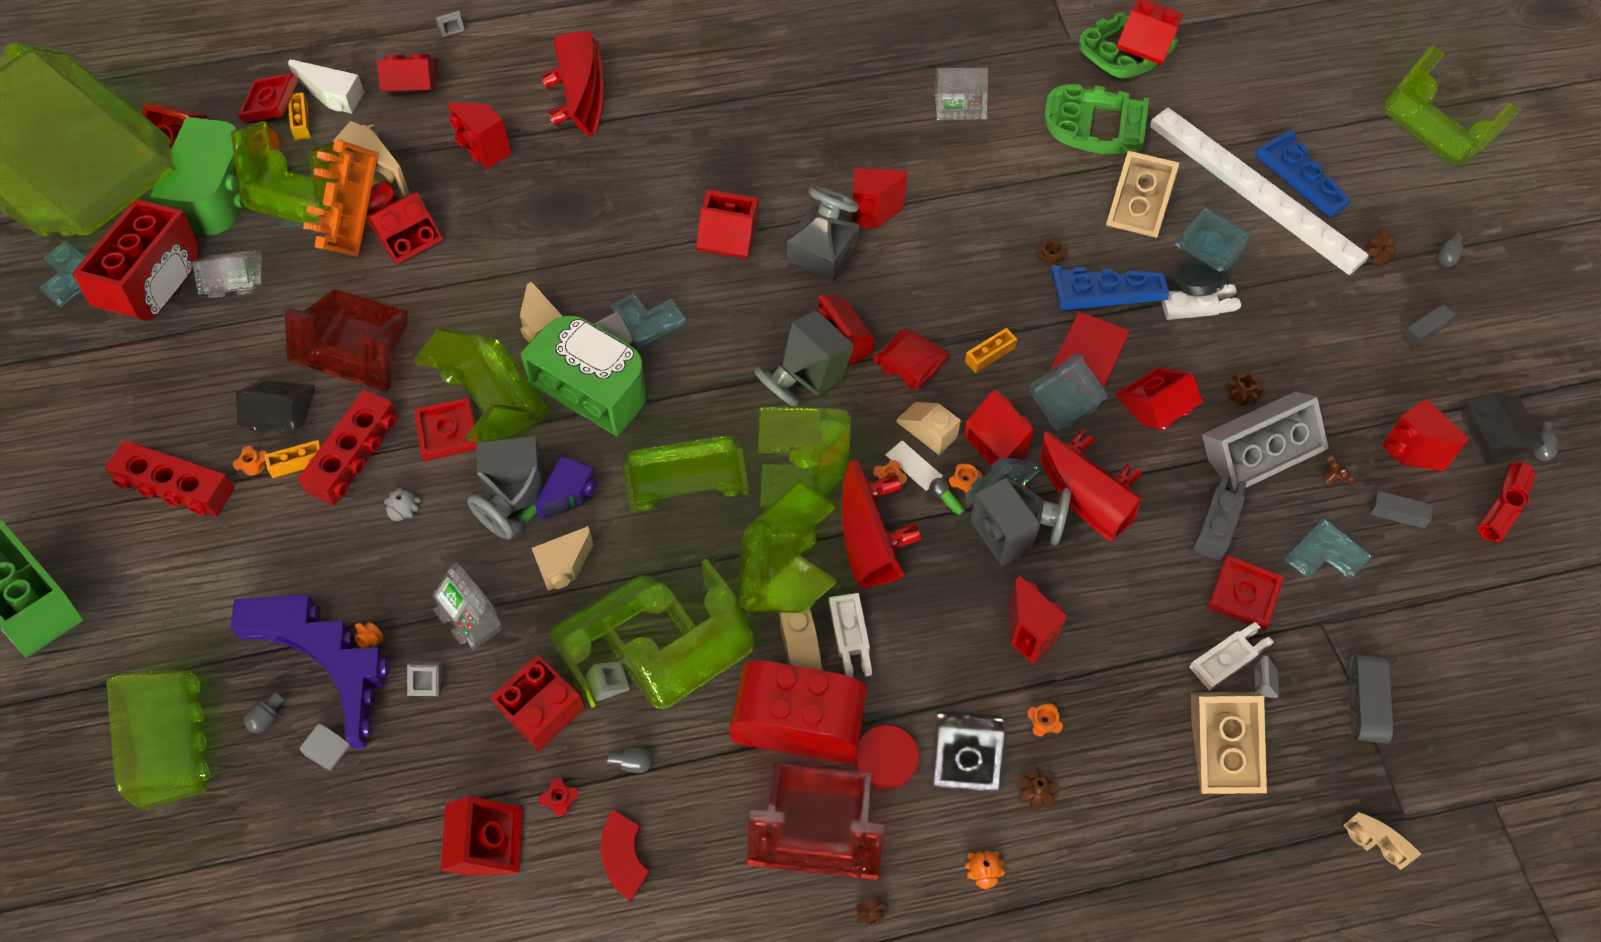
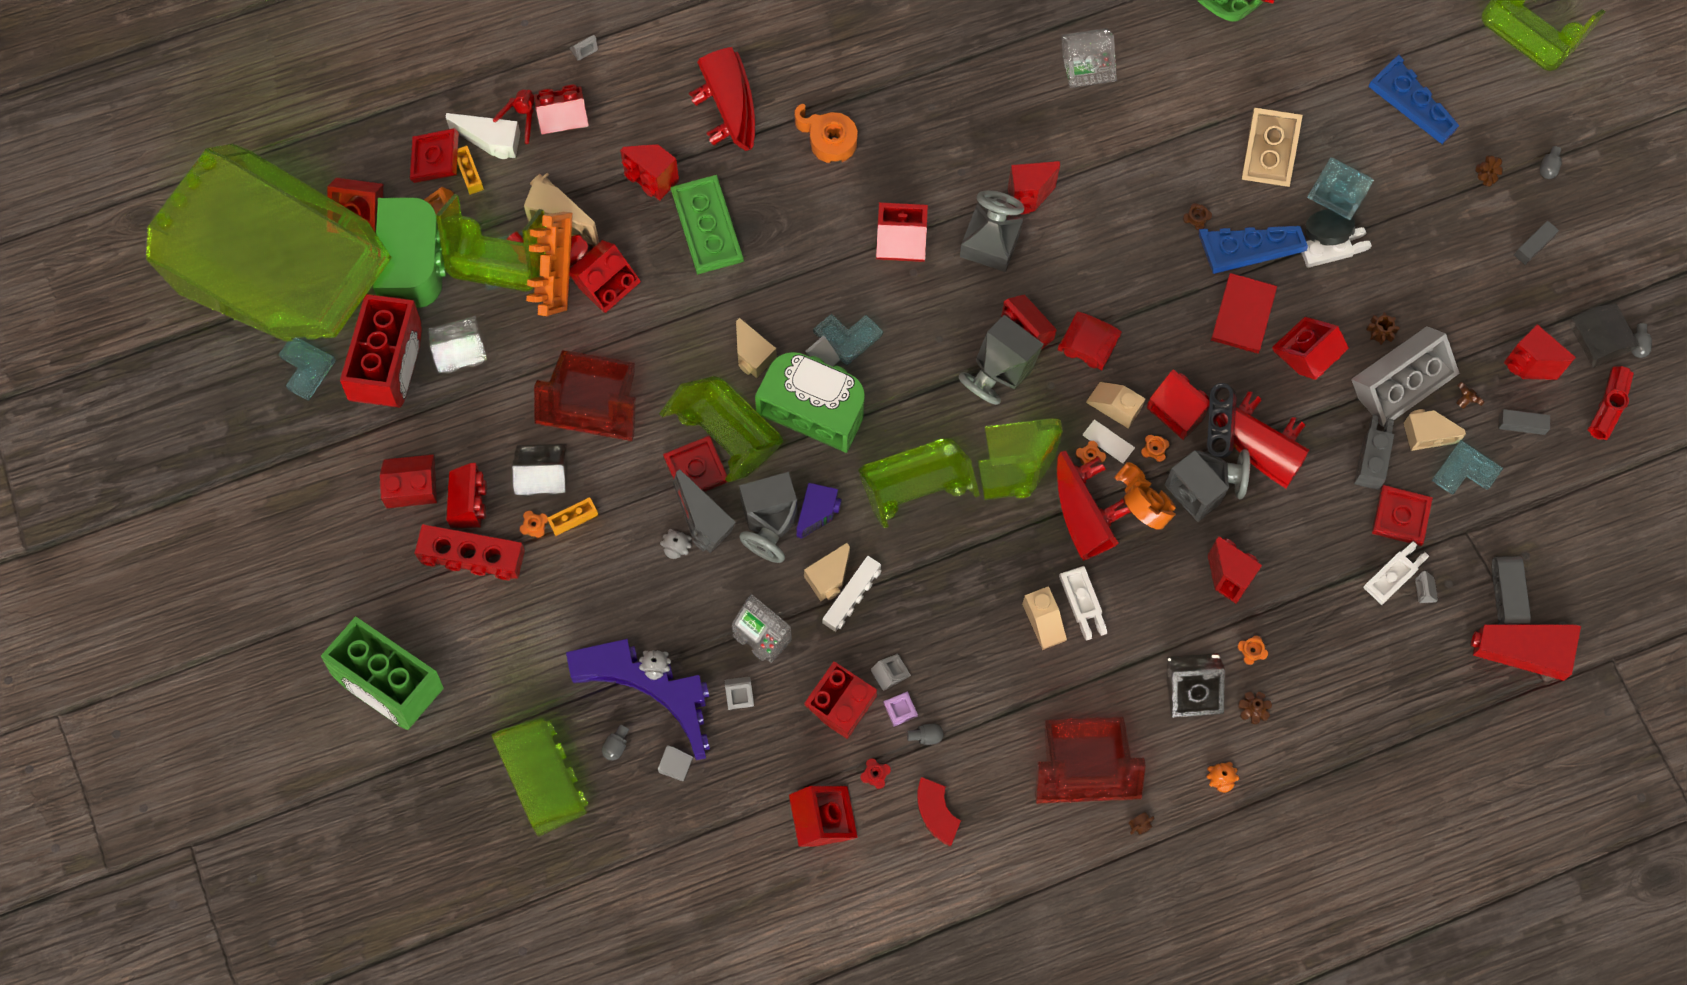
camera: 10 degrees left, 10 degrees up
(129, 399) = (408, 481): none -> red slope
(184, 421) = (465, 497): none -> red slope
(334, 629) = (654, 670): none -> light grey animal
(348, 433) = (624, 462): red brick -> none
(368, 635) = (684, 665): orange plate -> none
(369, 65) = (523, 104): none -> red plant
(436, 482) = (705, 519): none -> dark grey slope
(519, 522) = (784, 543): piece -> none
(527, 196) = (706, 224): none -> bright green tile
(573, 636) = (855, 638): clear neon green windscreen -> none
(583, 586) = (852, 594): none -> white piece
(608, 725) = (900, 709): none -> lavender tile
(675, 128) = (825, 126): none -> orange piece
(693, 658) = (962, 643): clear neon green windscreen -> none
(771, 568) = (1006, 546): clear neon green windscreen -> none
(799, 711) = (1056, 676): red brick -> none
(888, 755) = (1131, 698): red tile -> none
(940, 488) = (1136, 458): piece -> none
(940, 530) = (1142, 500): none -> orange piece
(990, 350) = (1158, 322): light orange piece -> none
(1014, 469) = (1189, 442): clear light blue plate -> none
(1040, 437) = (1215, 409): none -> black beam
(1068, 392) = (1231, 355): clear light blue slope -> none
(1071, 113) = (1195, 68): bright green slope -> none
(1229, 742) = (1402, 645): tan slope -> none
(1259, 191) = (1373, 122): white plate -> none
(1290, 502) = (1431, 430): none -> tan slope
(1369, 832) = (1518, 702): tan slope -> none
(1394, 768) = (1534, 648): none -> red slope

